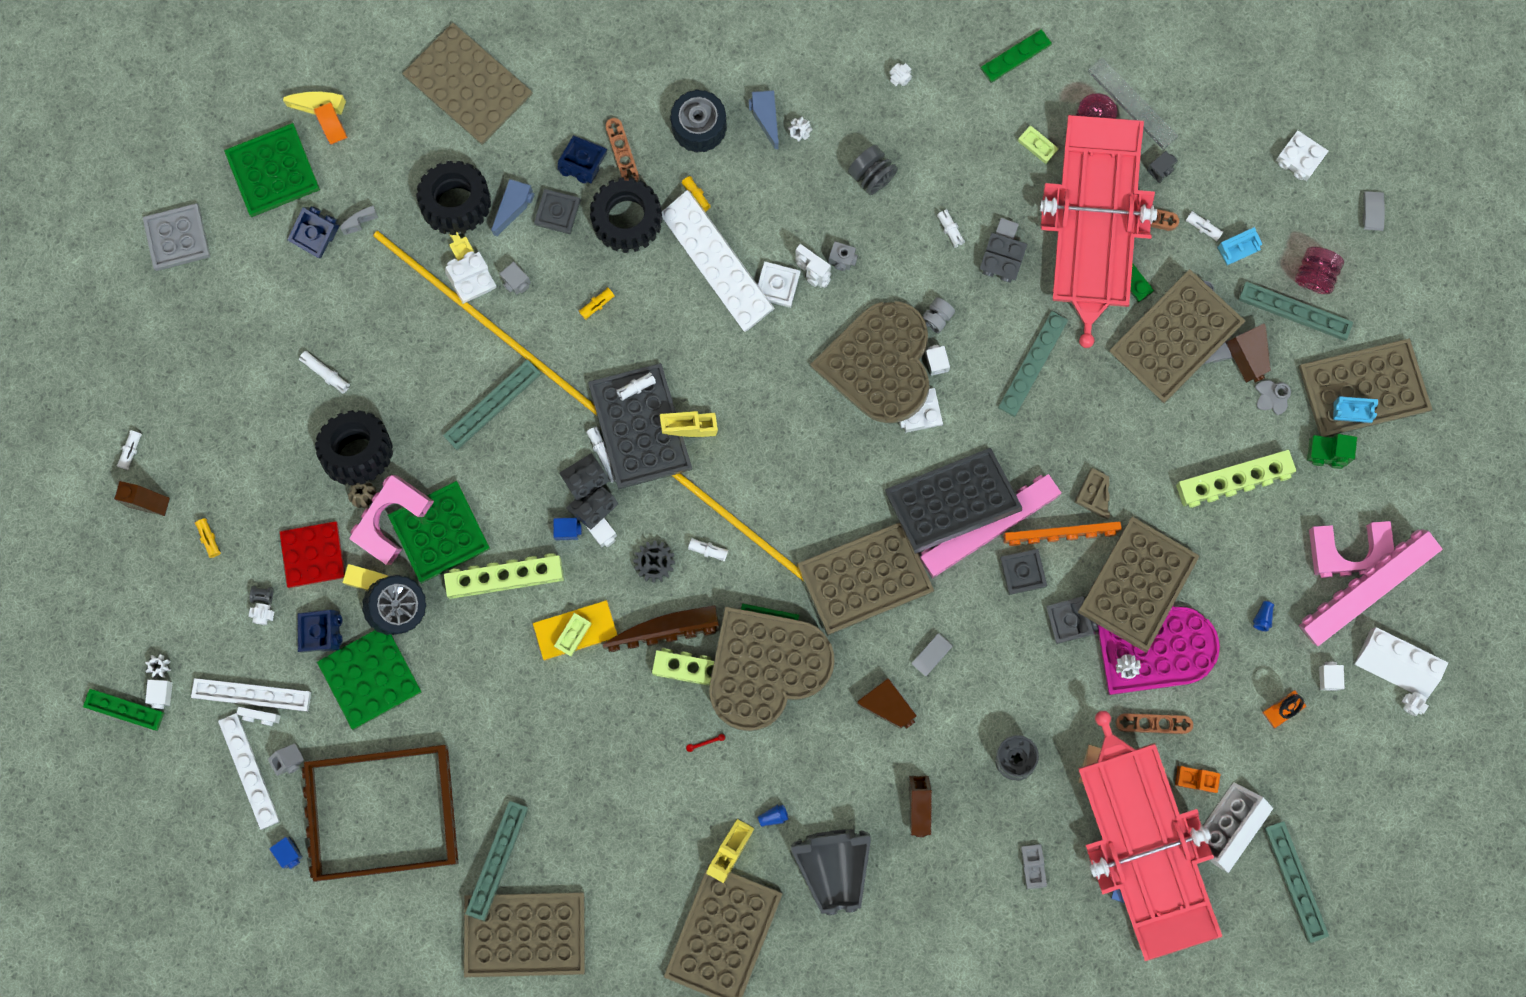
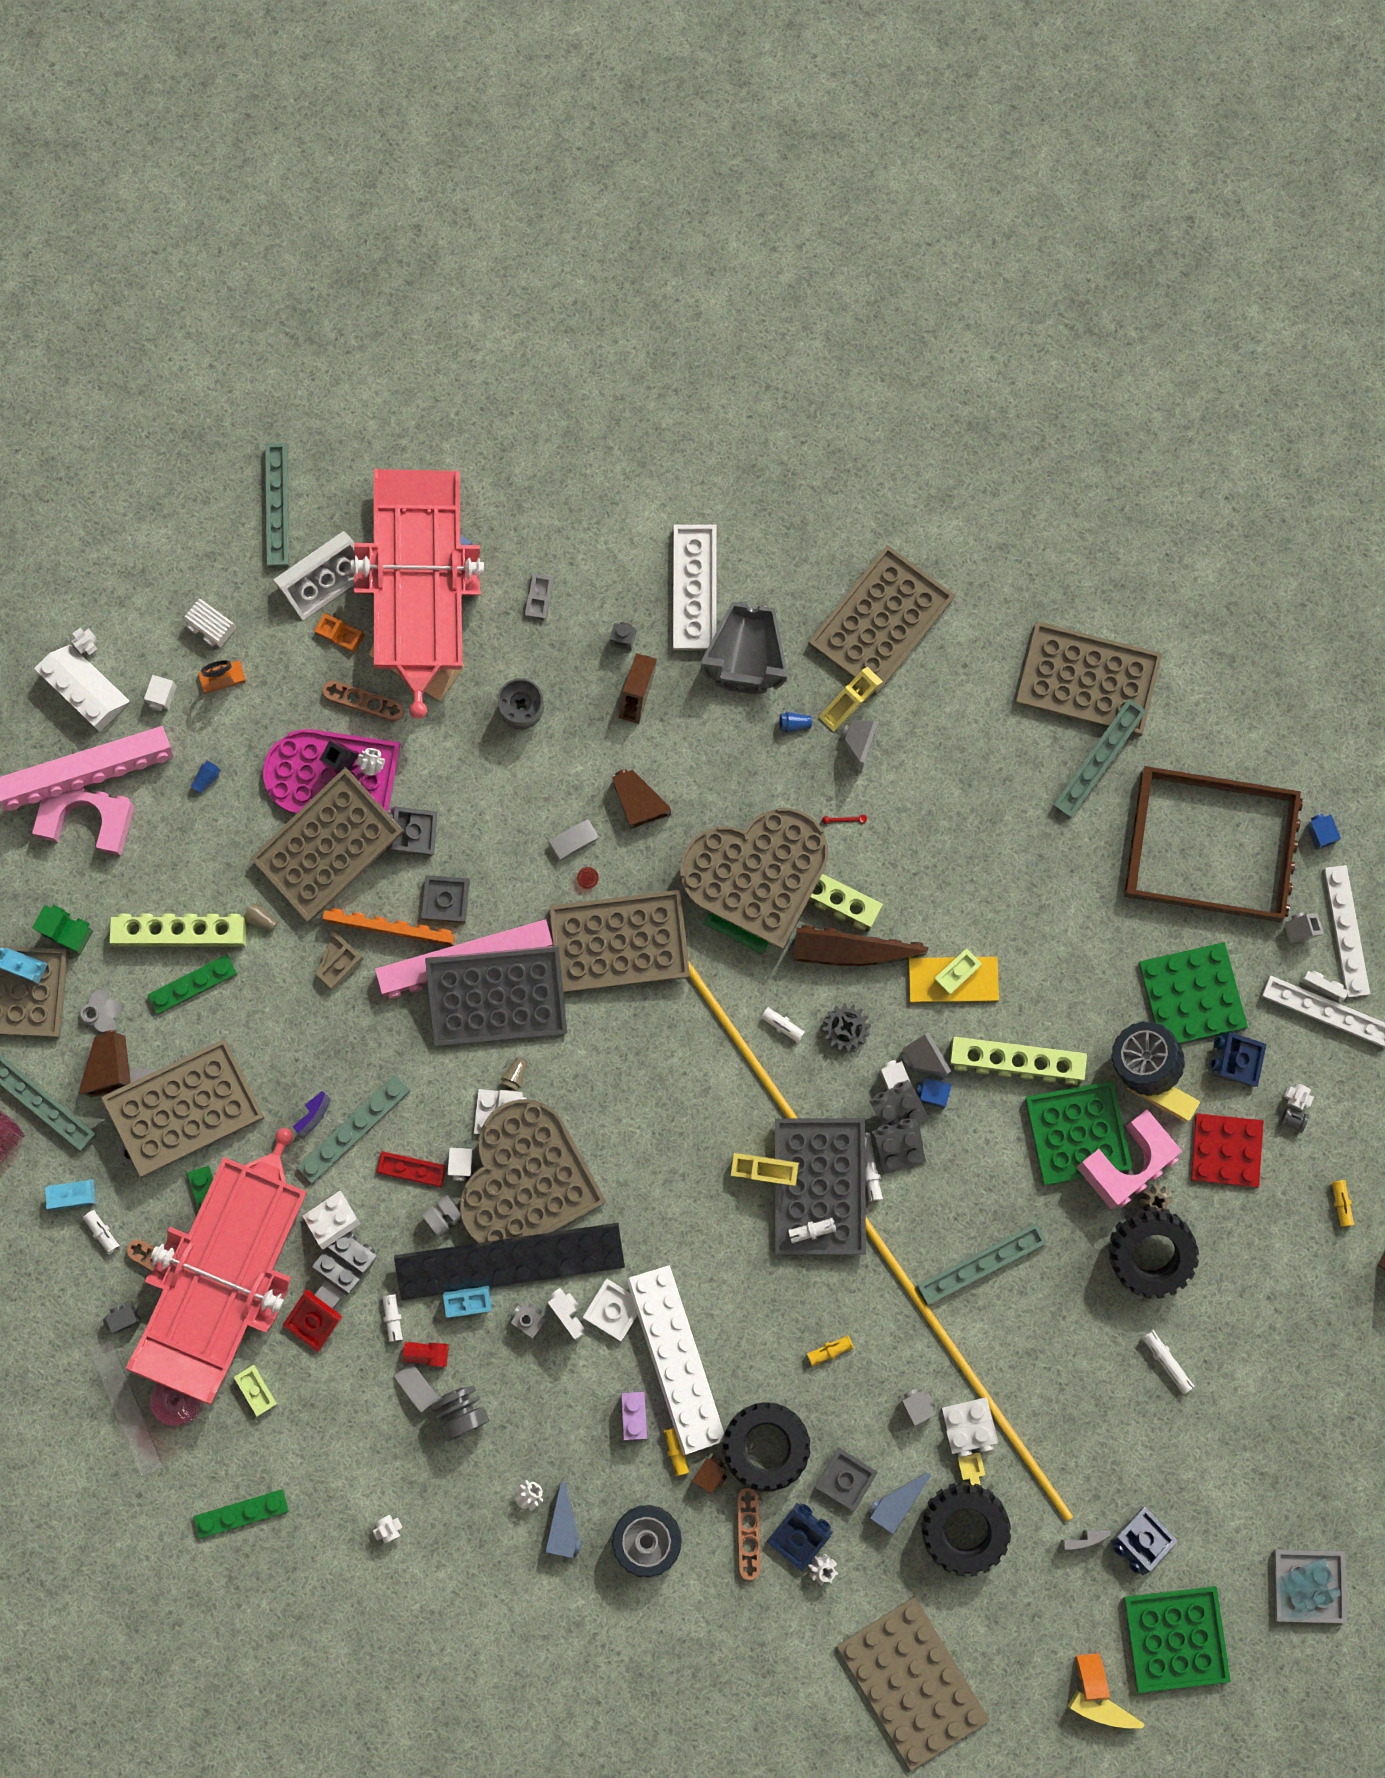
camera: 165 degrees left, 0 degrees up
(179, 238) = (1307, 1579): none -> clear light blue plate
(557, 140) = (817, 1567): none -> white gear
(582, 554) = (925, 1057): none -> light grey slope
(664, 183) = (710, 1474): none -> reddish brown brick
(711, 813) = (859, 740): none -> light grey slope
(736, 209) = (634, 1415): none -> lavender brick
(872, 296) = (509, 1261): none -> black plate
(896, 257) = (467, 1301): none -> medium azure hinge
(899, 916) = (694, 587): none -> white plate
(909, 625) = (587, 878): none -> clear red plate
(911, 209) = (431, 1354): none -> red piece
(914, 182) = (416, 1387): none -> light grey slope
(916, 443) = (514, 1076): none -> dark tan cone
(947, 850) = (623, 636): none -> dark grey brick
(975, 346) = (411, 1169): none -> red tile
(1012, 206) = (312, 1320): none -> red plate
(1025, 285) = (331, 1220): none -> white plate
(1069, 361) = (317, 1109): none -> dark purple slope
(1156, 661) = (338, 756): none -> black brick
(1172, 510) = (260, 917): none -> dark tan cone
(1207, 440) = (192, 984): none -> green plate
(1313, 753) = (209, 623): none -> white brick

